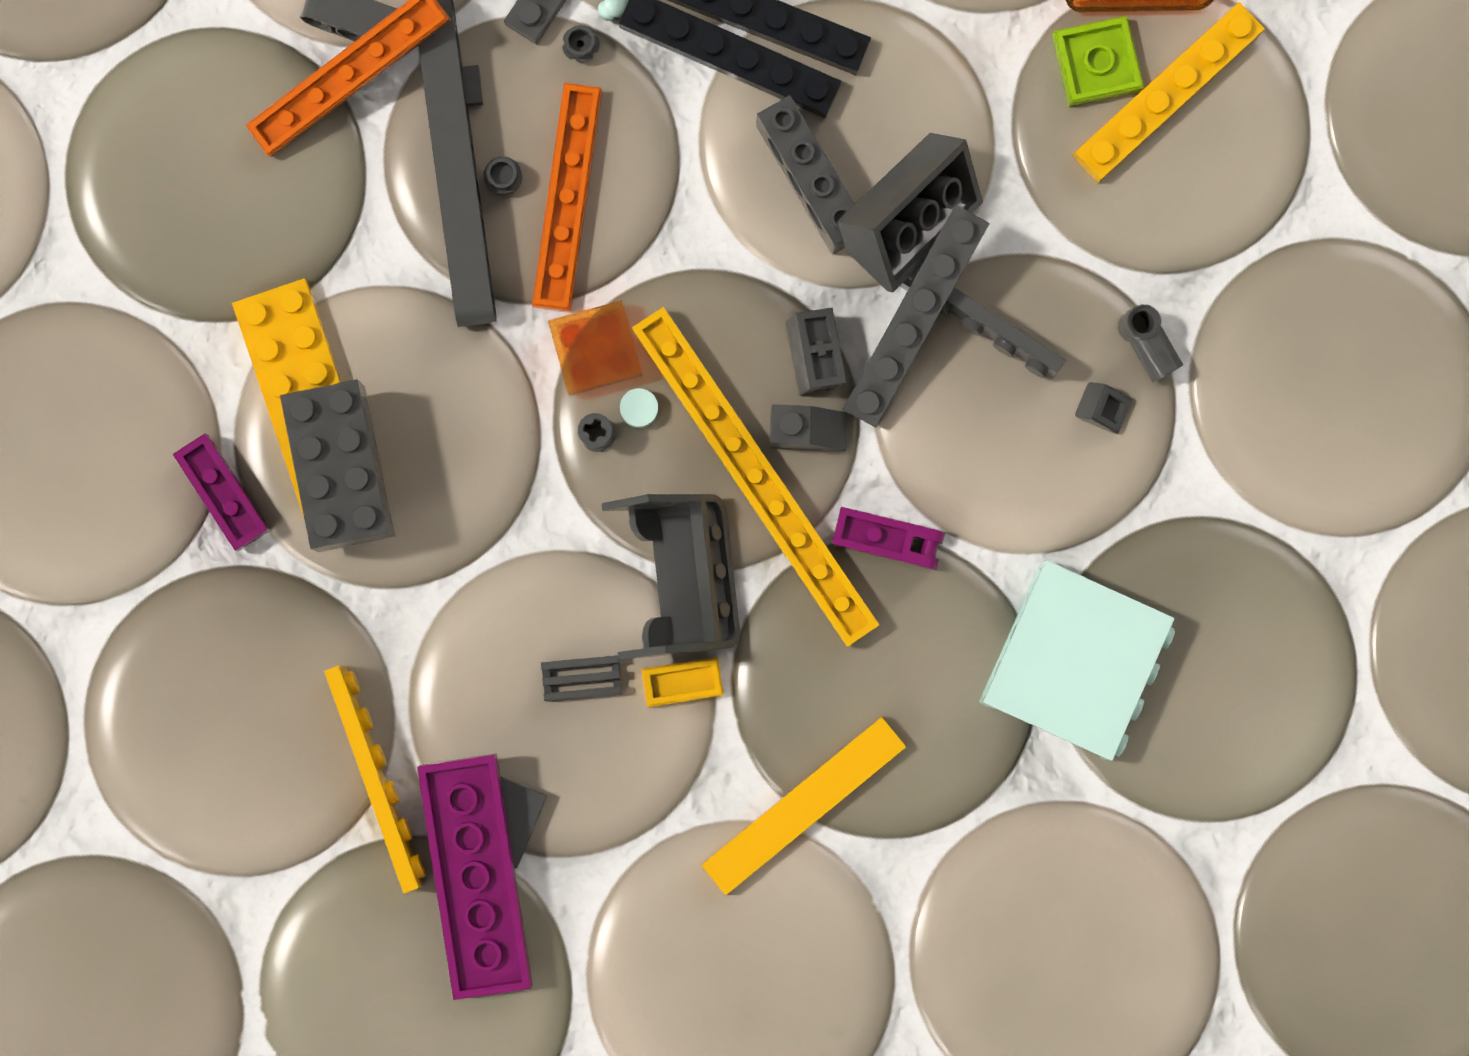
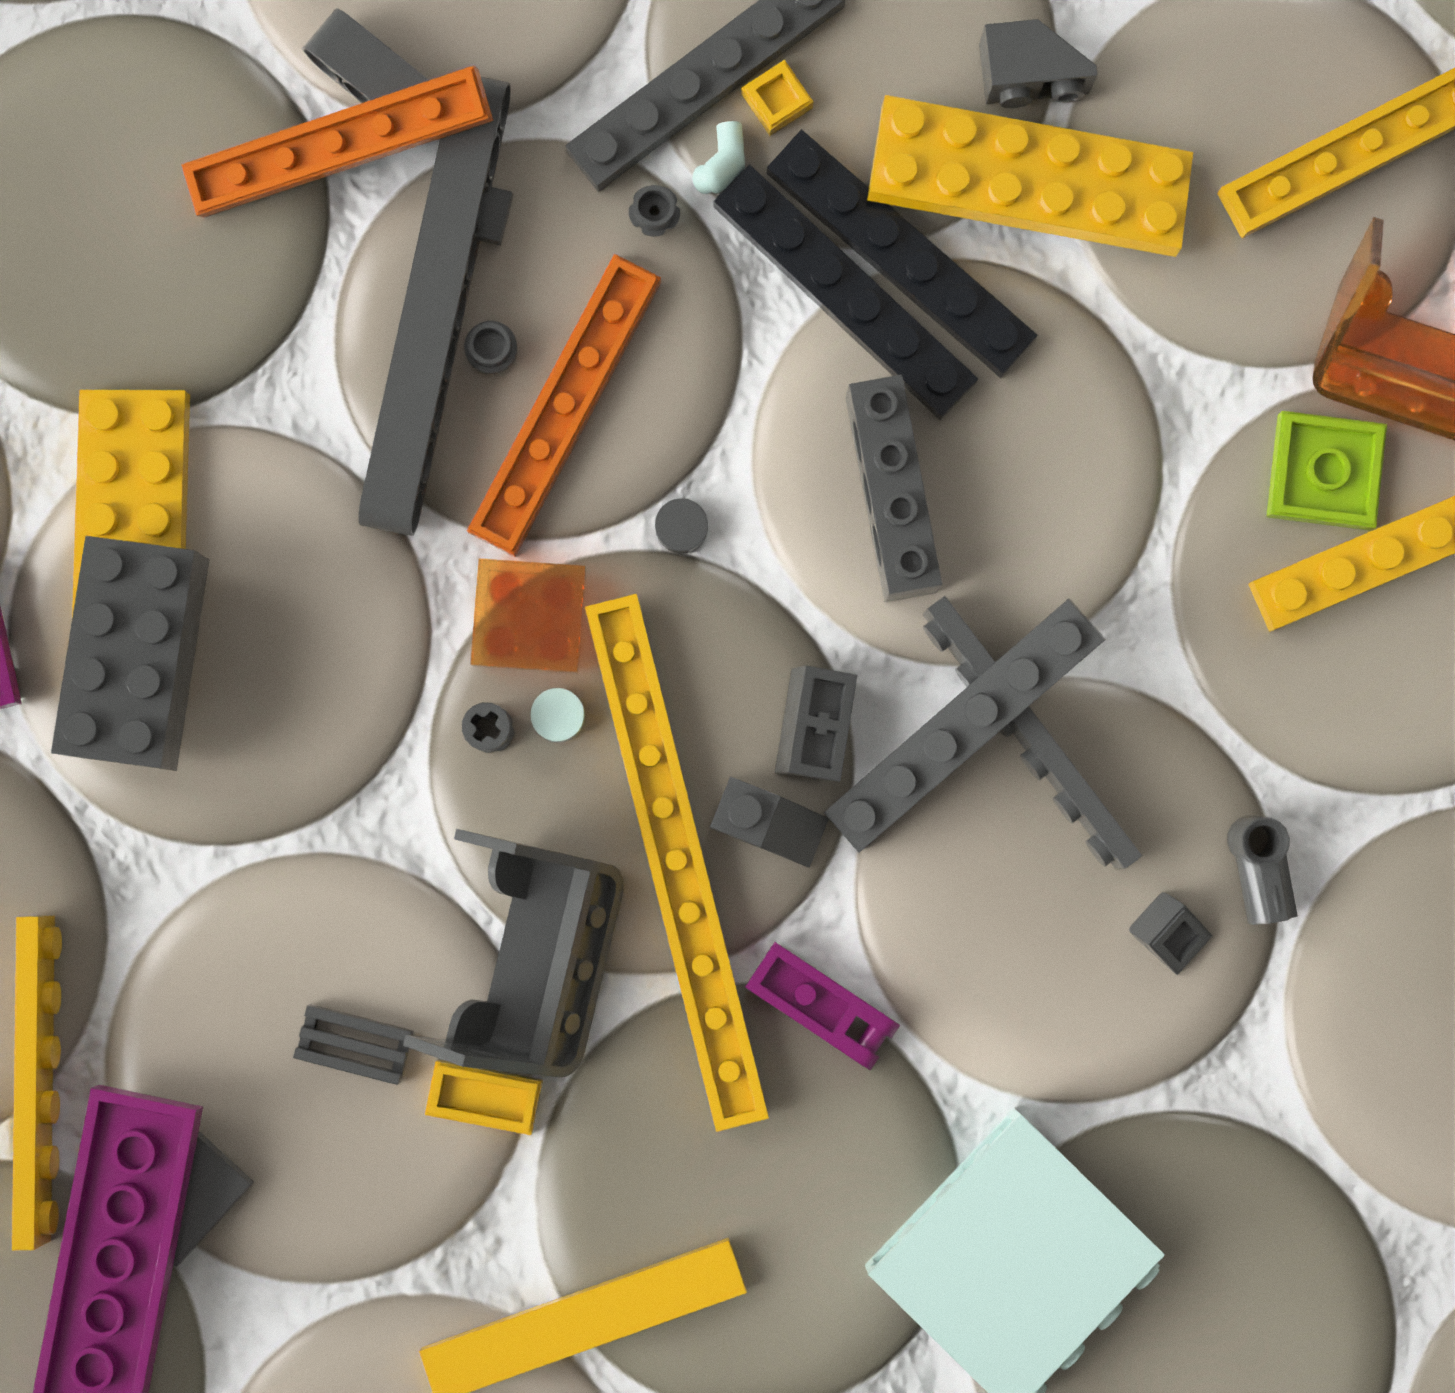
camera: 25 degrees right, 0 degrees up
(676, 251) = (681, 526): none -> dark grey tile
(908, 207) = (1004, 580): dark grey slope -> none

